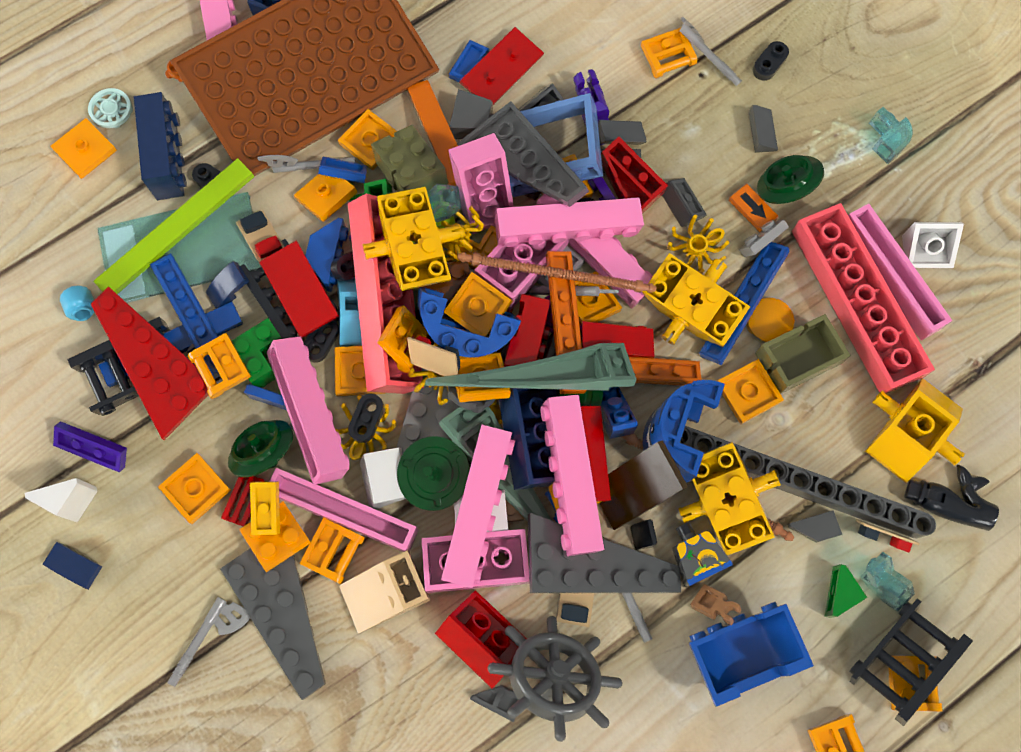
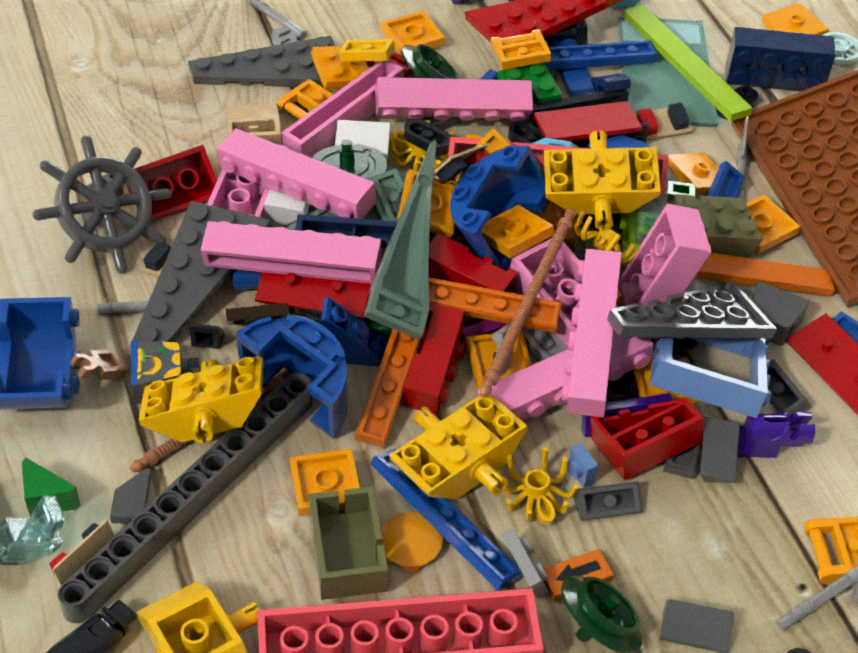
camera: 105 degrees right, 25 degrees down
(667, 220) = (582, 465): none -> medium blue plate

